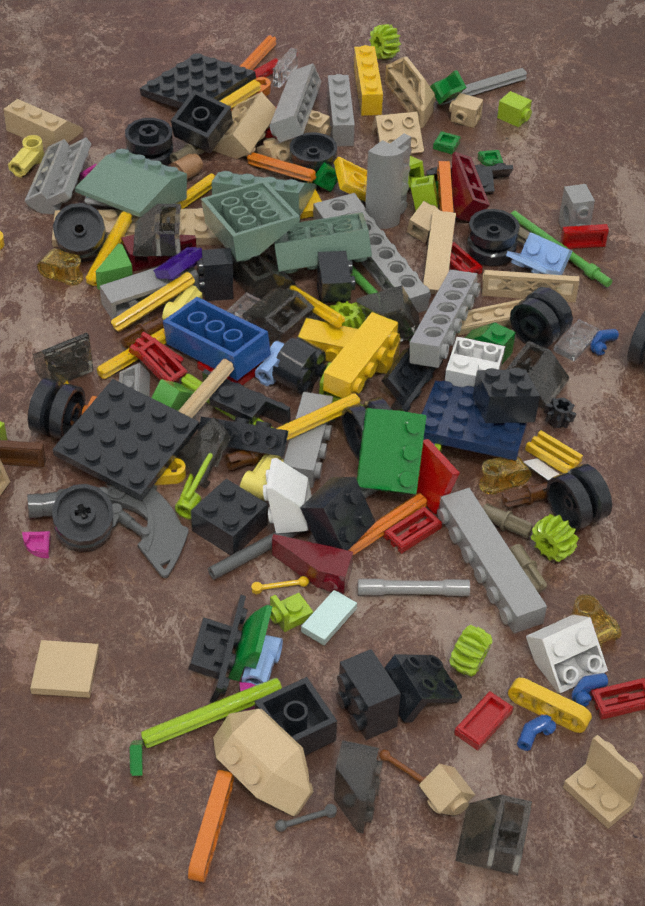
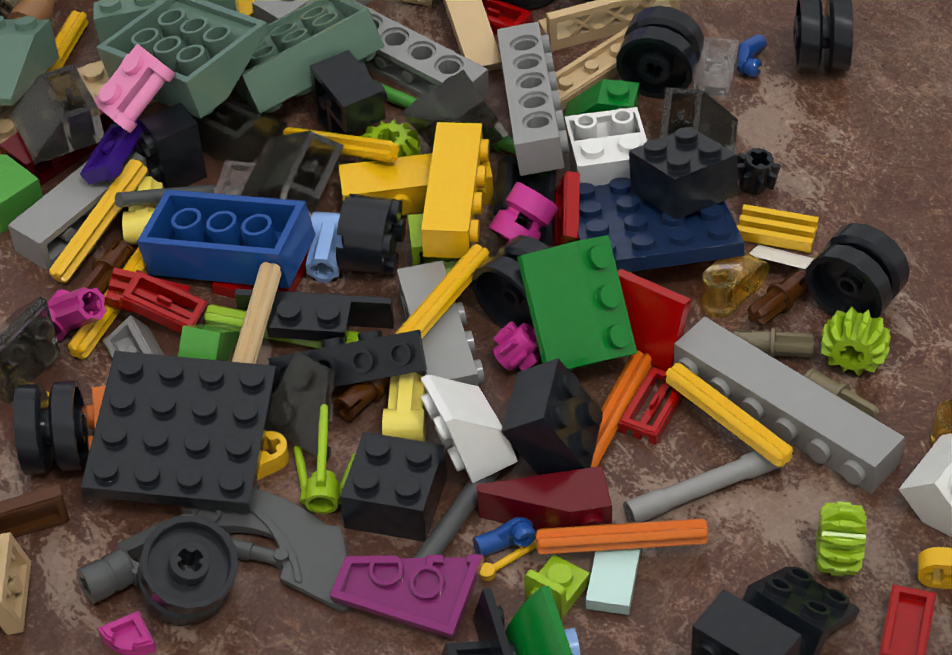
camera: 20 degrees left, 0 degrees up
(107, 348) = (75, 309): none -> dark pink piece
(186, 297) = (153, 196): none -> dark grey bar
(204, 228) = (132, 87): none -> bright pink plate
(205, 581) = (411, 591): none -> magenta wing
(283, 571) = (516, 531): none -> blue arm
(343, 597) = (622, 536): none -> orange axle
(347, 463) = (516, 346): none -> dark pink gear
(401, 382) = (530, 206): none -> dark pink wheel
(427, 392) = (567, 217): none -> red tile
(449, 552) = (729, 415): none -> yellow axle

